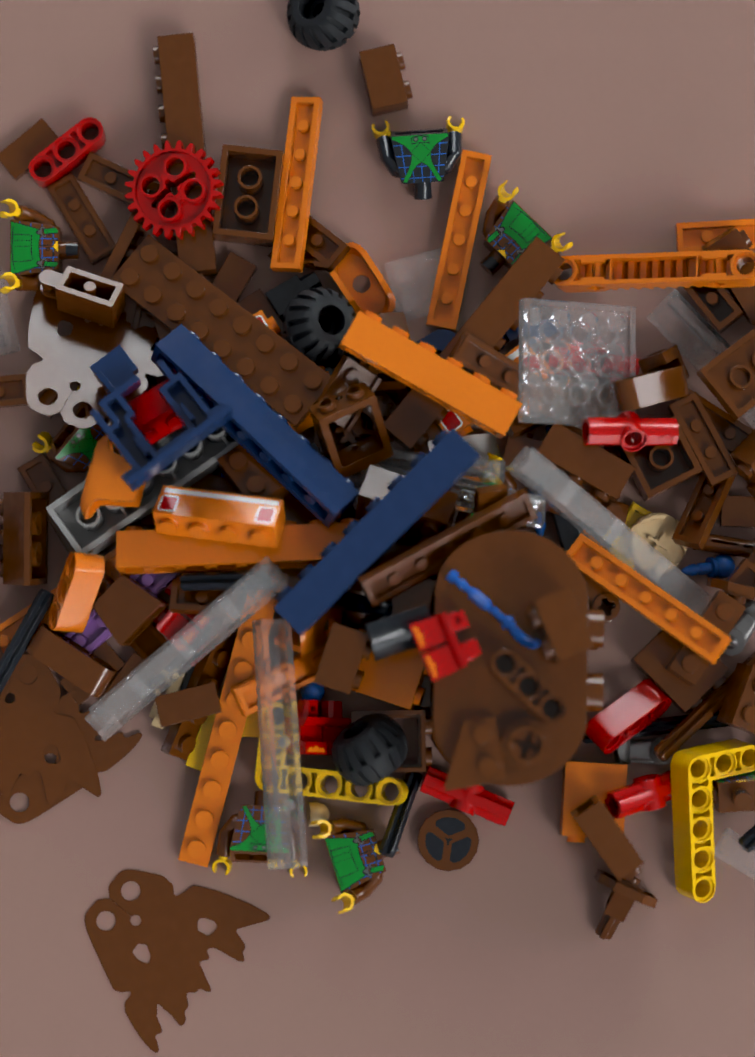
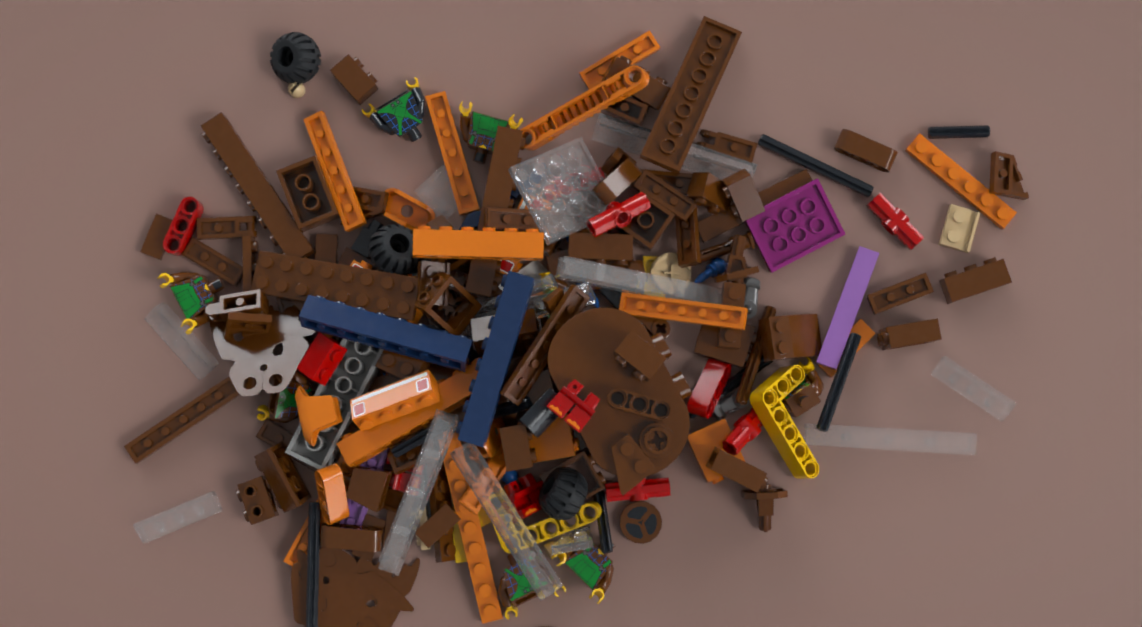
camera: 25 degrees left, 0 degrees up
(83, 319) = (247, 324): none -> reddish brown wing
(119, 379) = (288, 349): dark blue container -> none
(157, 169) = (243, 206): red gear -> none
(302, 59) = (298, 92): none -> tan hinge
(350, 816) = (573, 540): none -> clear wing
(486, 604) = (584, 367): blue piece -> none

